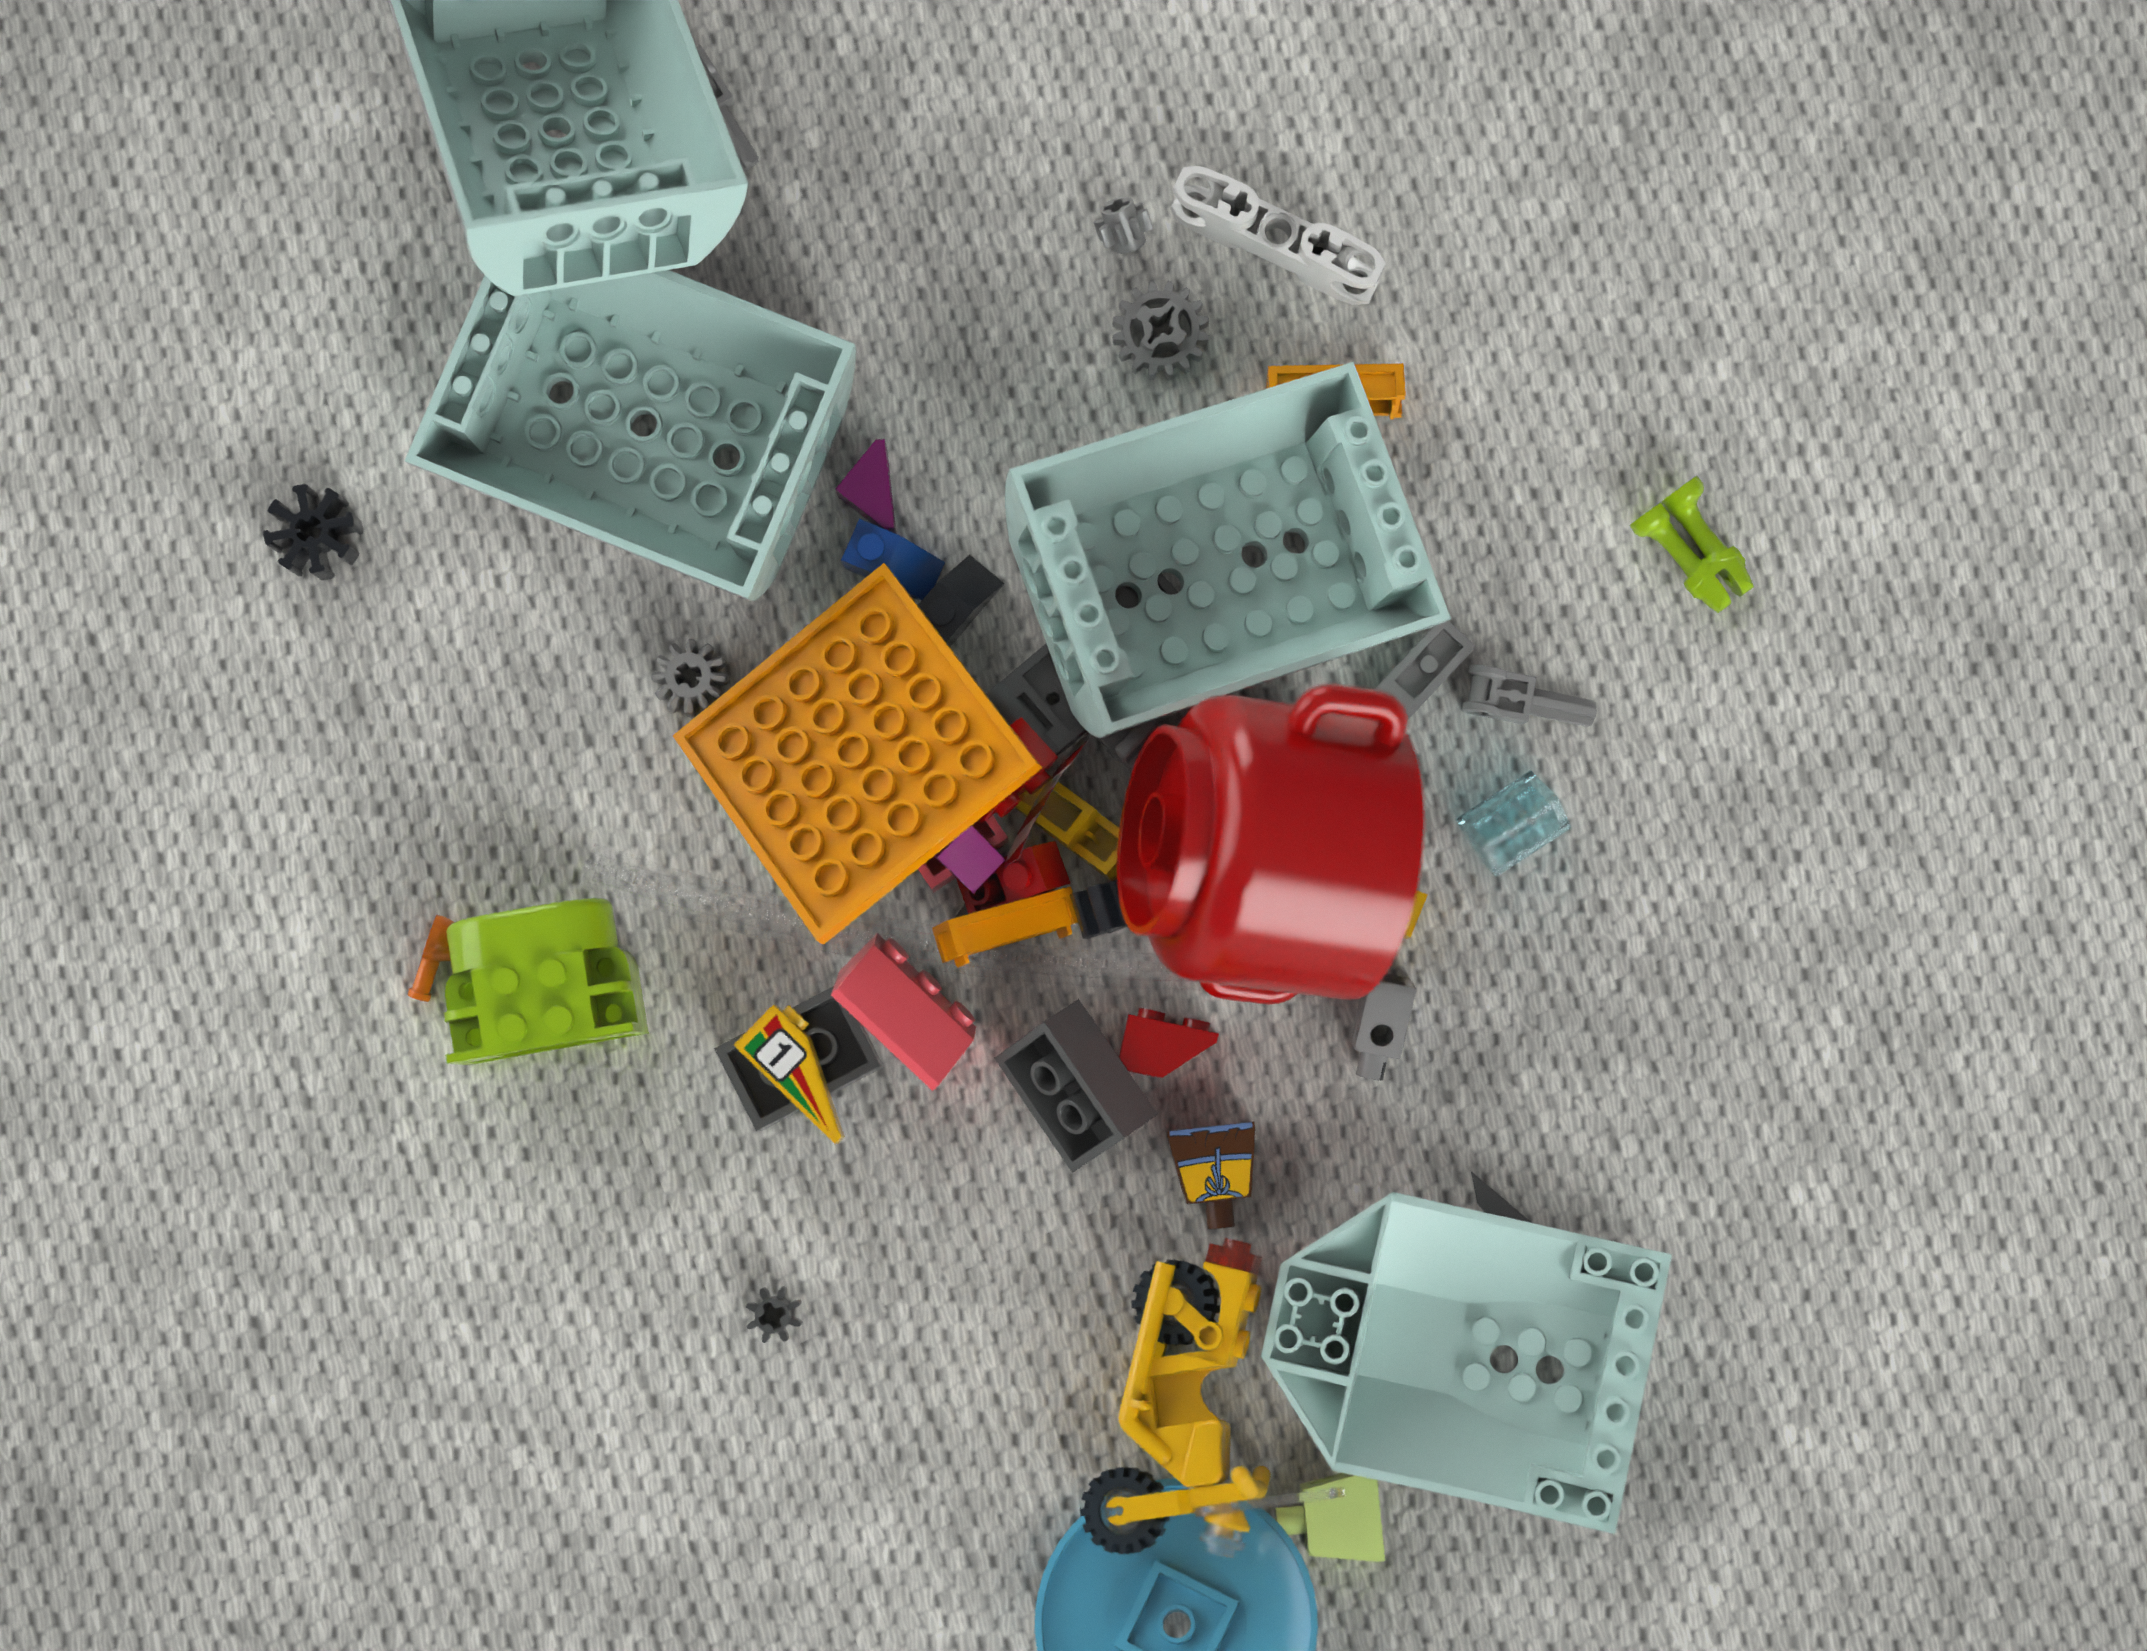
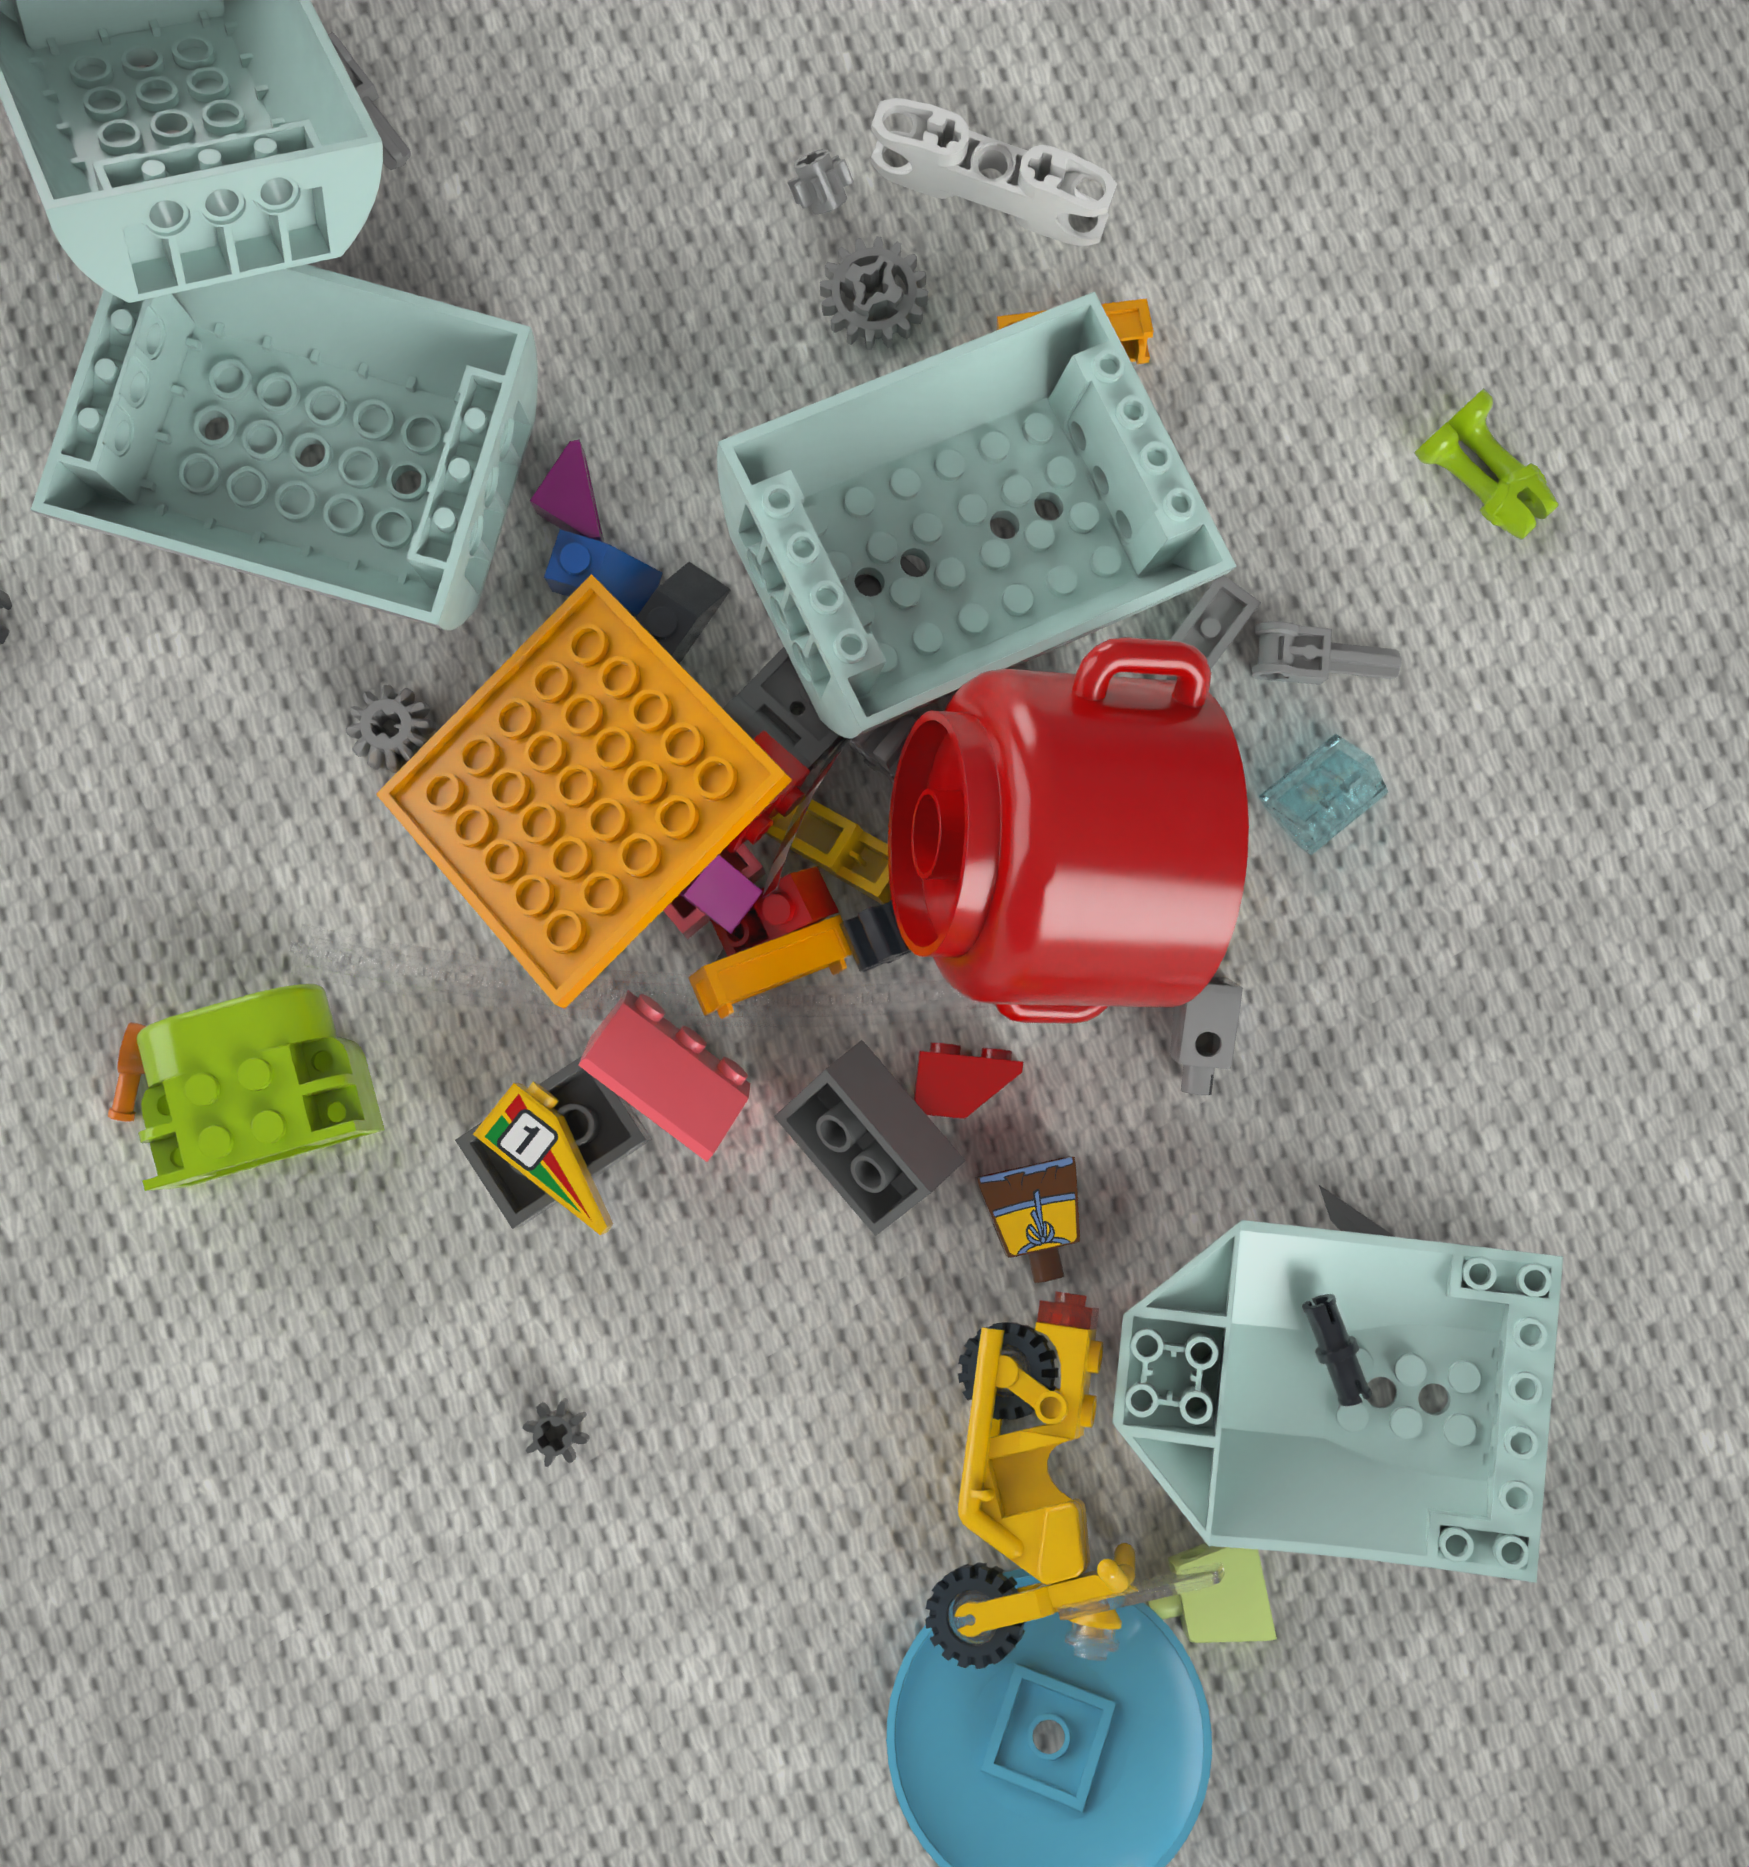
camera: 10 degrees left, 0 degrees up
(1466, 1315) = (1337, 1350): none -> black pin

